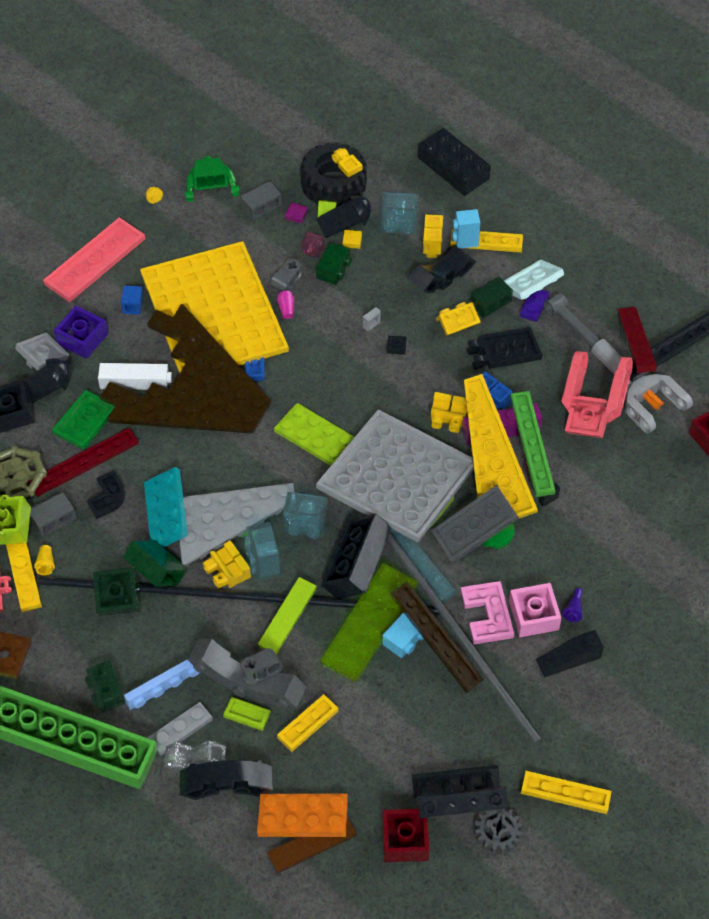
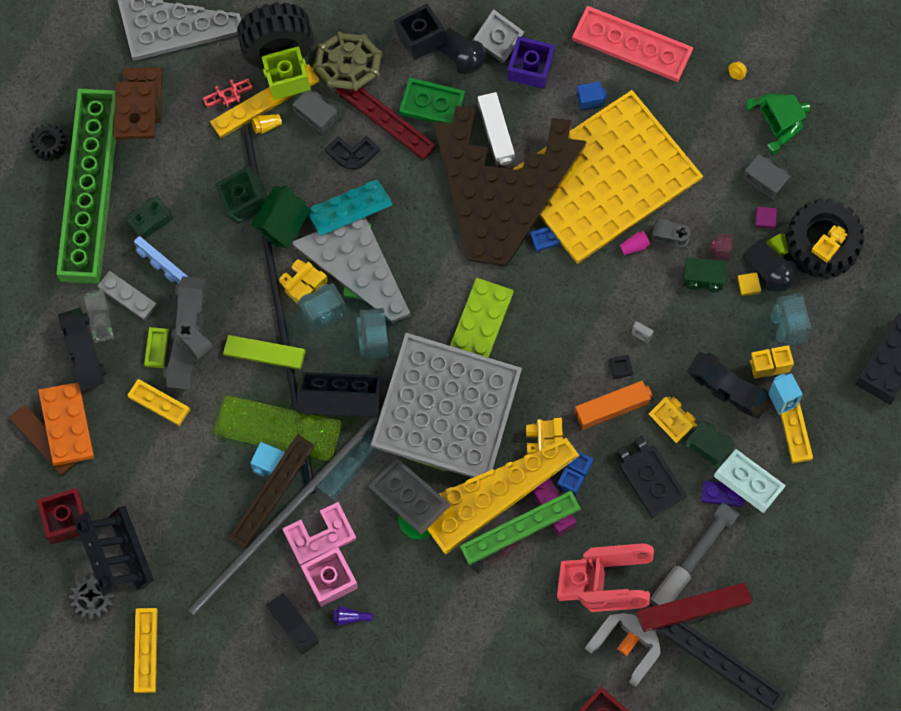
camera: 75 degrees right, 15 degrees up
(432, 357) = (613, 405): none -> orange brick

